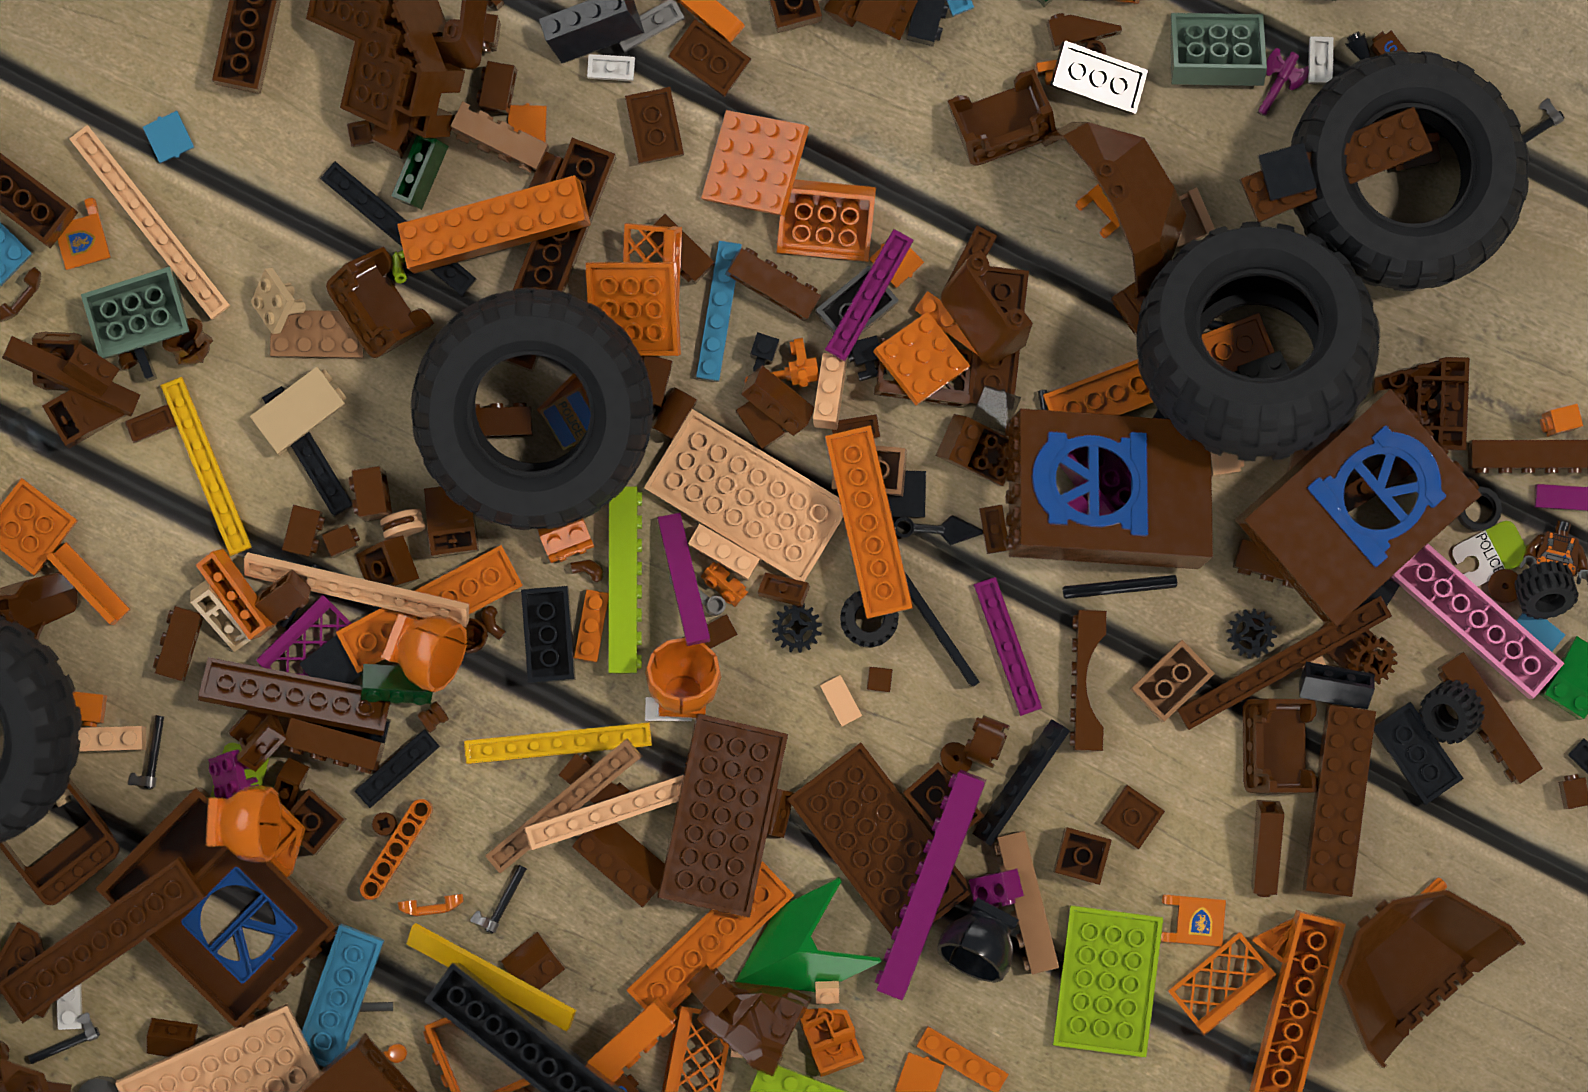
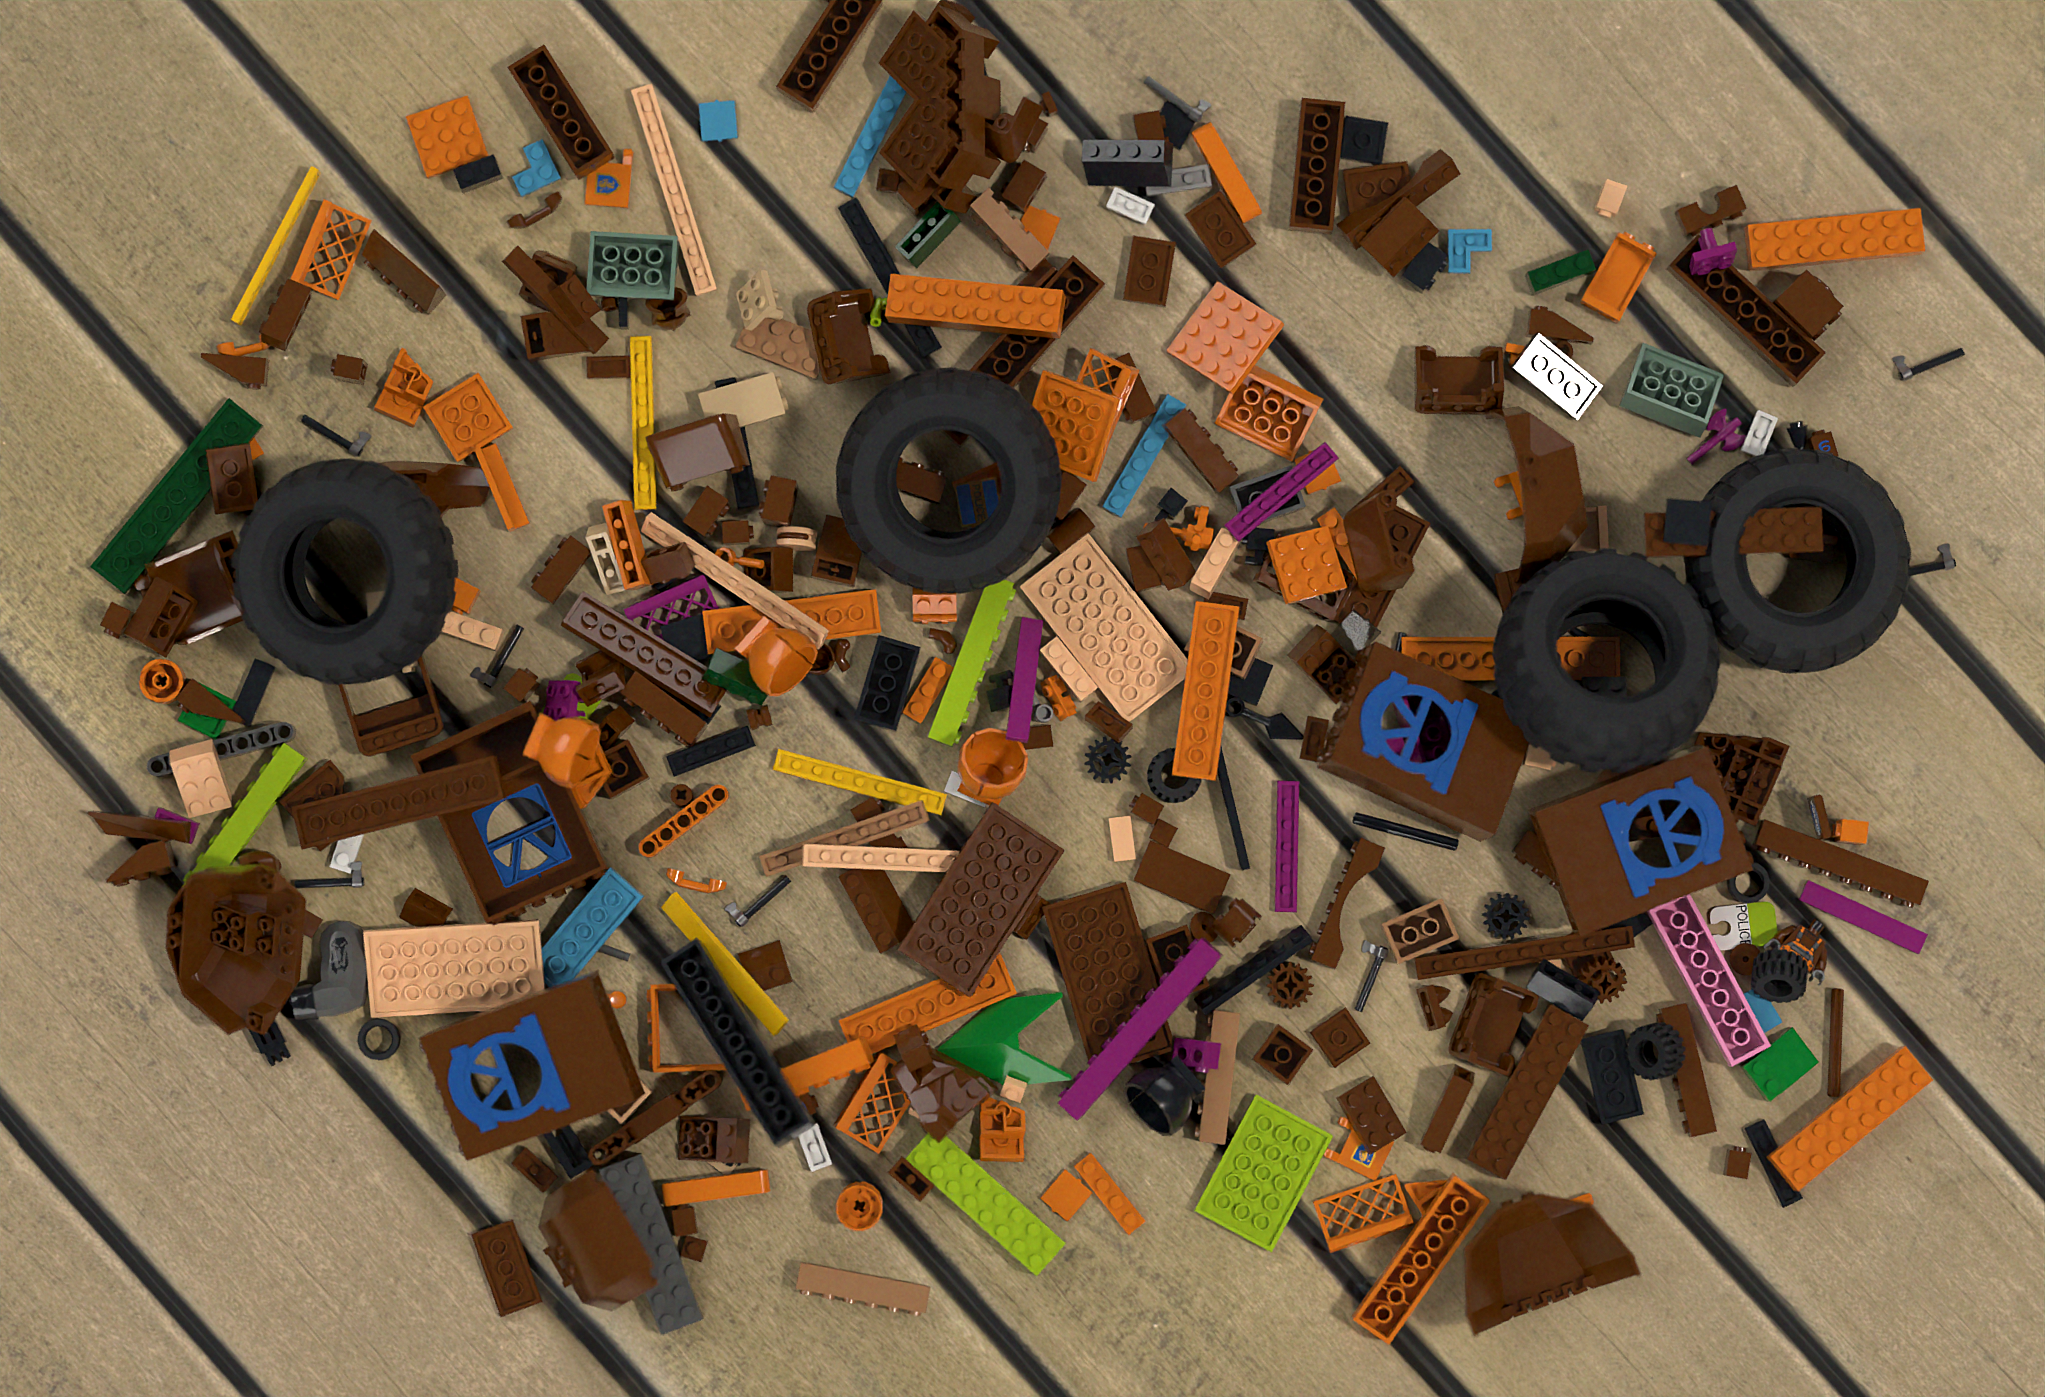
camera: 20 degrees right, 0 degrees up
(182, 774) = (522, 685): none -> reddish brown brick
(270, 472) = (698, 450): none -> reddish brown windscreen
(327, 97) = (870, 138): none -> dark azure plate
(358, 566) = (743, 561): none -> orange piece
(666, 605) = (1000, 697): none -> black brick
(853, 661) = (1146, 808): none -> reddish brown brick
(915, 716) = (1182, 877): none -> reddish brown tile
(1057, 769) = (1299, 985): none -> reddish brown gear
(1141, 718) = (1381, 954): none -> black piece
(1193, 882) = (1371, 1115): none -> reddish brown plate
(1218, 758) = (1430, 998): none -> reddish brown tile
(1525, 417) = (1819, 817): none -> reddish brown tile

